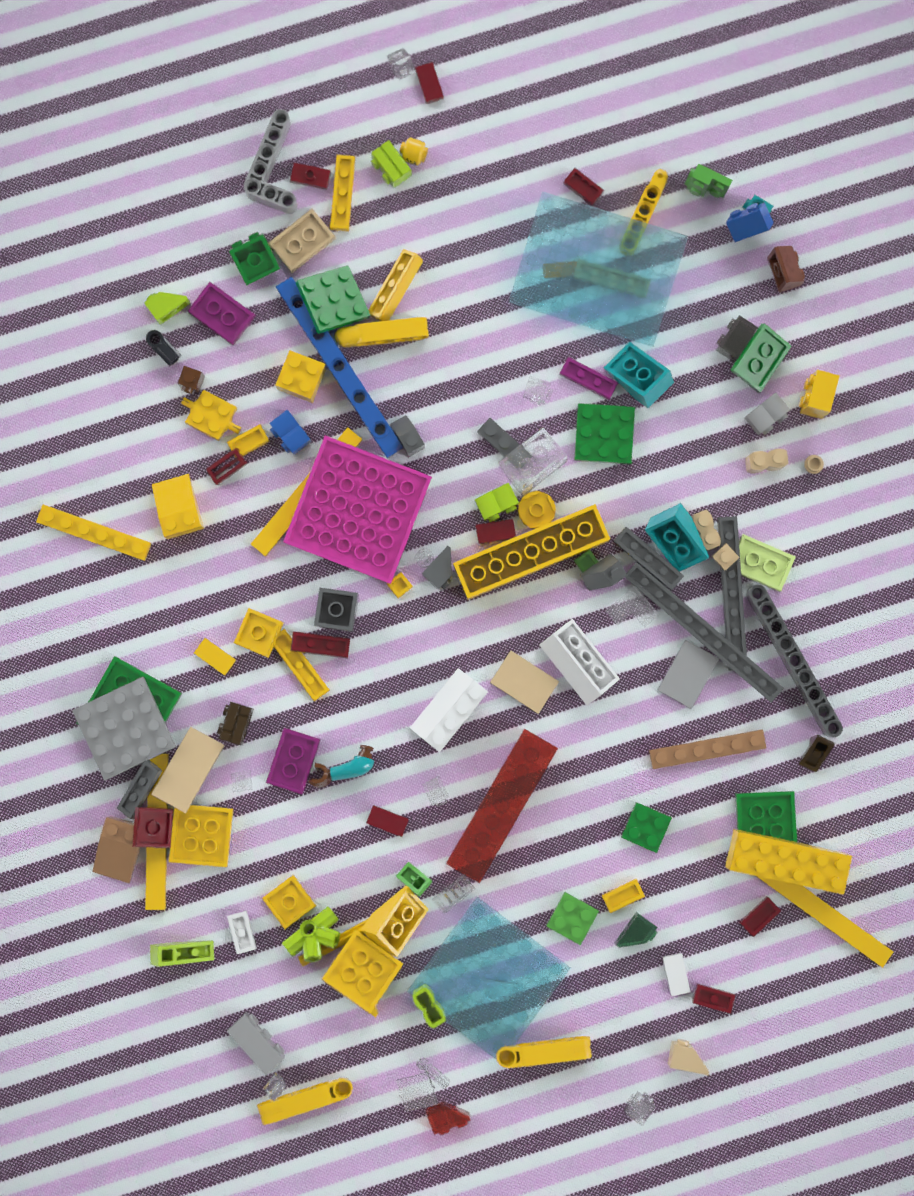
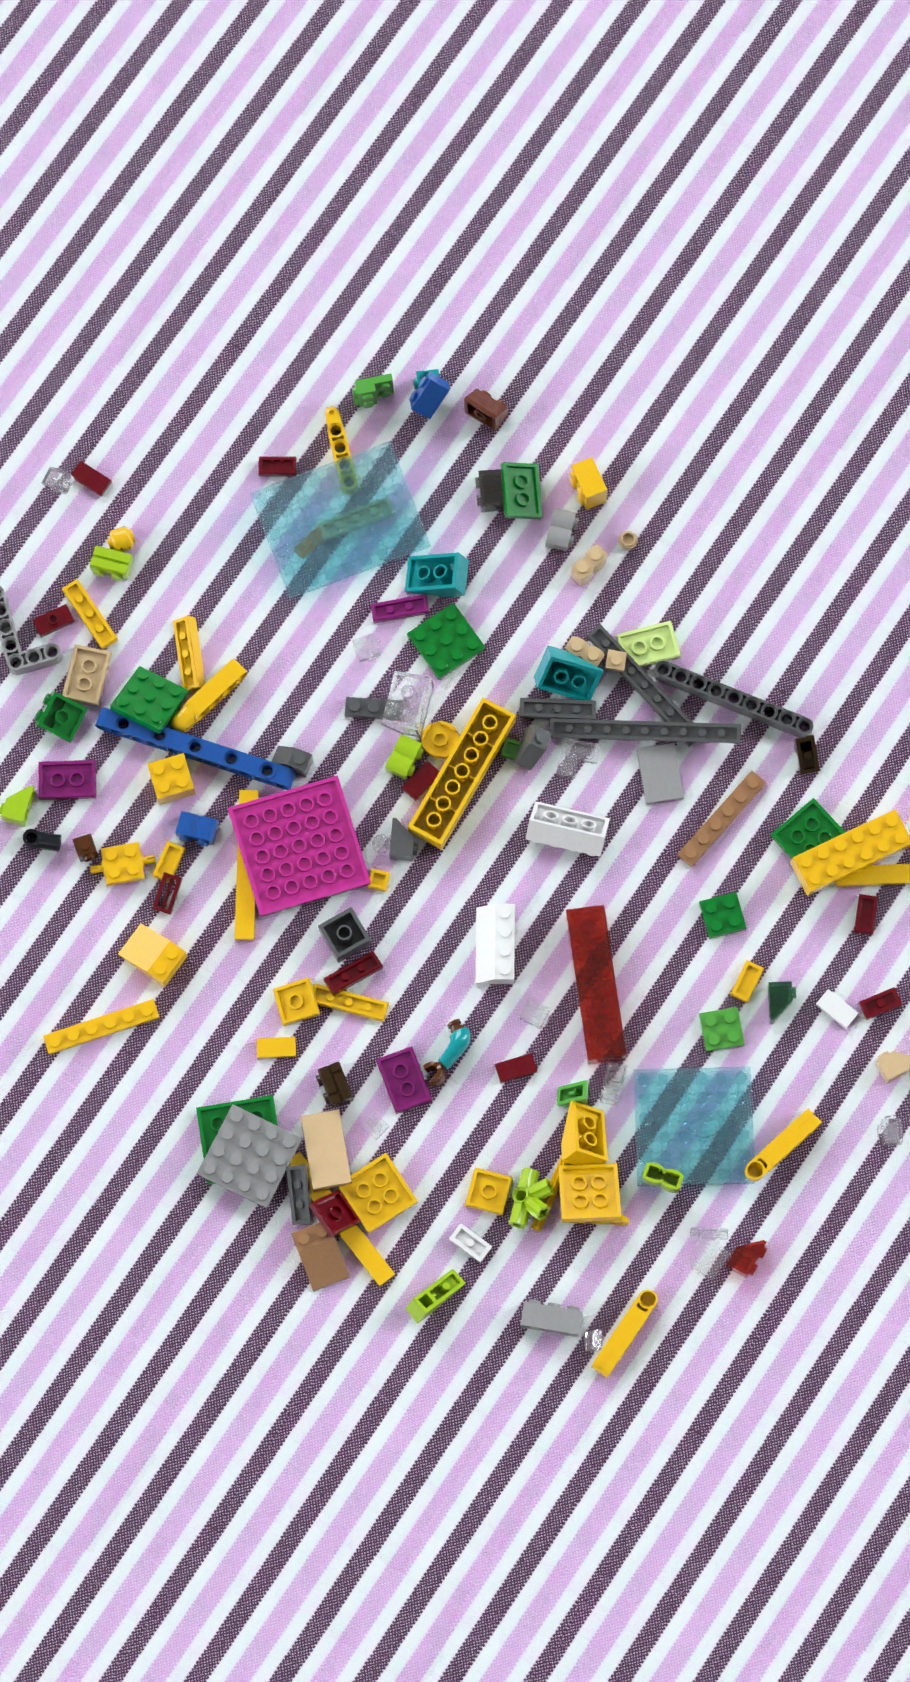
camera: 30 degrees left, 10 degrees down
(524, 682) = (537, 878): tan tile -> none

